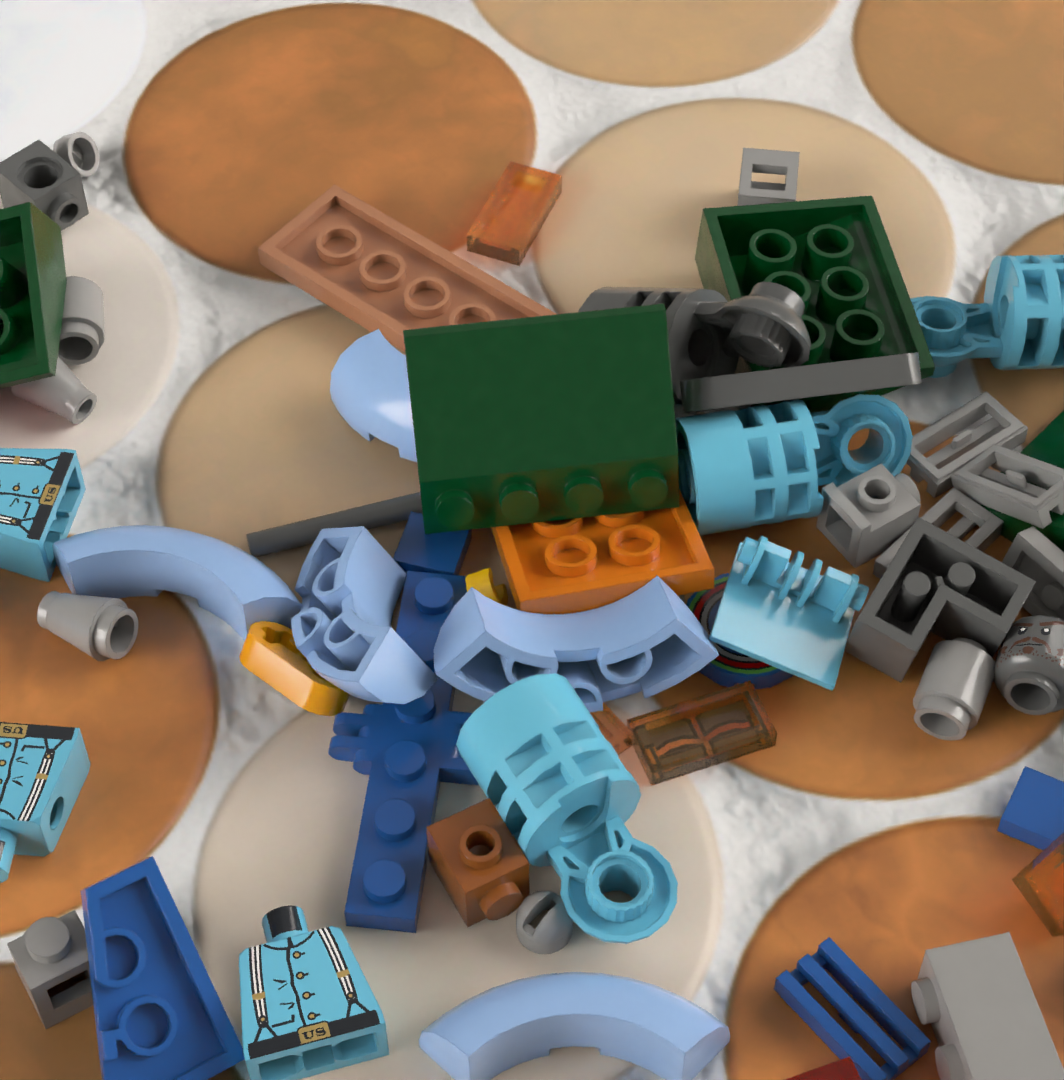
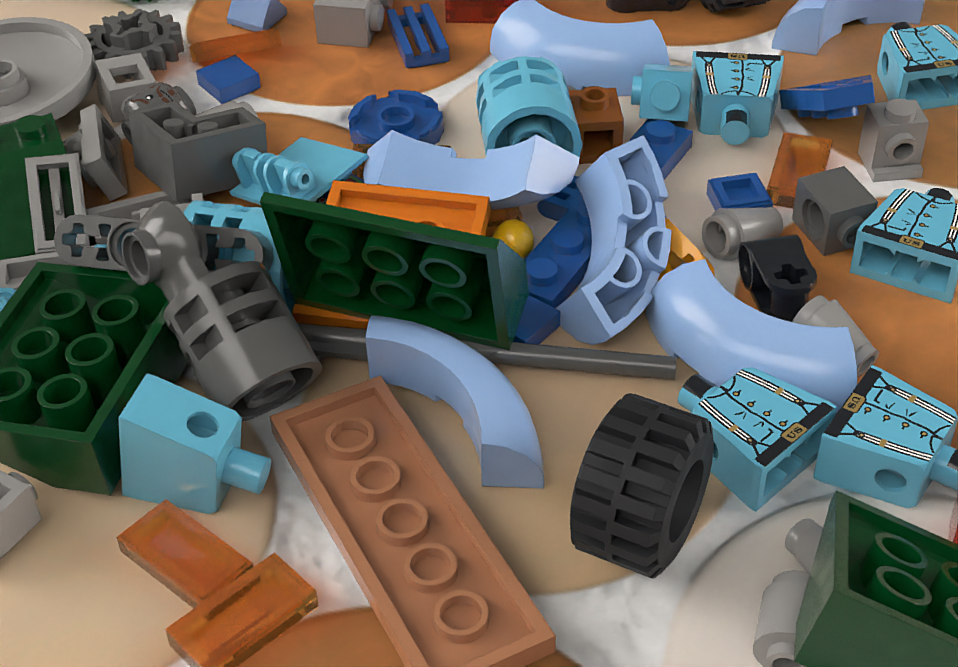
camera: 155 degrees left, 10 degrees down
(119, 807) = (831, 209): none -> dark grey brick
(145, 475) = (760, 430): none -> medium azure torso
(163, 674) = (777, 275): none -> black piece
(192, 878) = (796, 158): none -> clear orange tile
(220, 334) = (641, 484): none -> black tyre
(227, 743) = (731, 226): none -> light grey cone
(250, 826) = (738, 192): none -> blue tile
(402, 940) = (663, 92): none -> medium azure brick
(594, 239) = (182, 554): none -> clear orange tile
(638, 253) = (184, 449): none -> medium azure torso
(757, 811) = (401, 111): none -> blue tile

